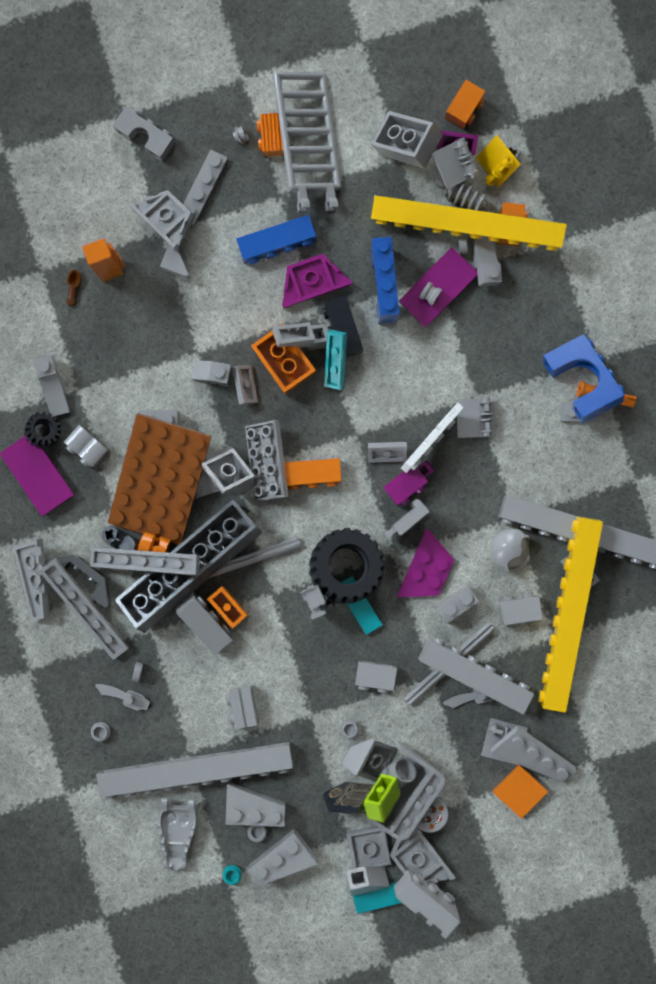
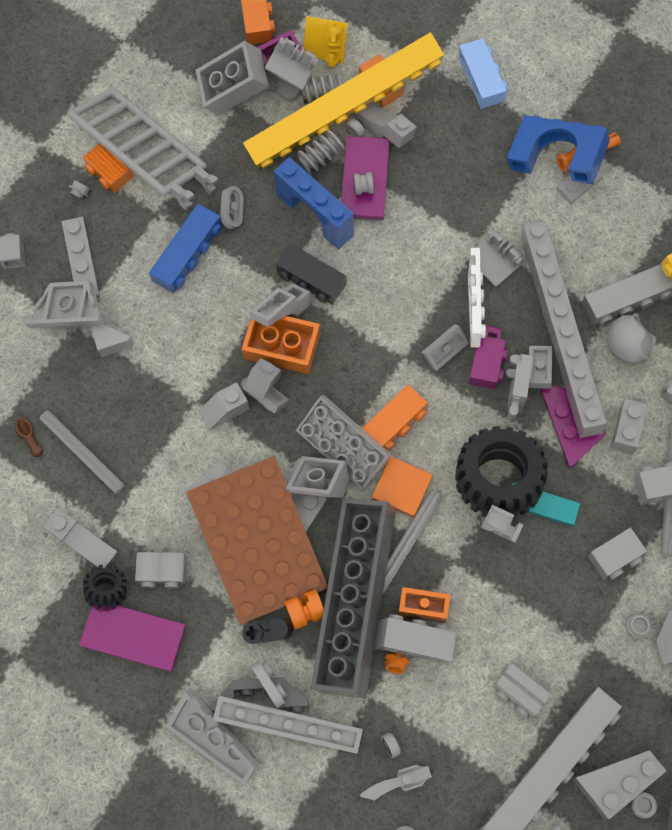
camera: 35 degrees left, 15 degrees down
(90, 585) = (274, 691): none -> light grey plate
(98, 326) = (82, 452): none -> light grey axle
(104, 259) = (40, 378): orange brick -> none
(145, 560) = (311, 621): light grey plate -> none
(181, 627) = (396, 663): none -> orange plate
(248, 376) = (262, 379): none -> light grey slope
(281, 519) = (402, 486): none -> orange tile
(312, 279) = (247, 257): magenta wing -> none
(331, 234) = (232, 207): none -> light grey plate
(335, 359) = (329, 303): teal tile -> none
(427, 245) = (320, 151): none -> light grey piece
(436, 517) = (541, 367): none -> light grey plate
(472, 504) = (563, 330): none -> light grey brick
(586, 277) = (482, 73): none -> light blue brick

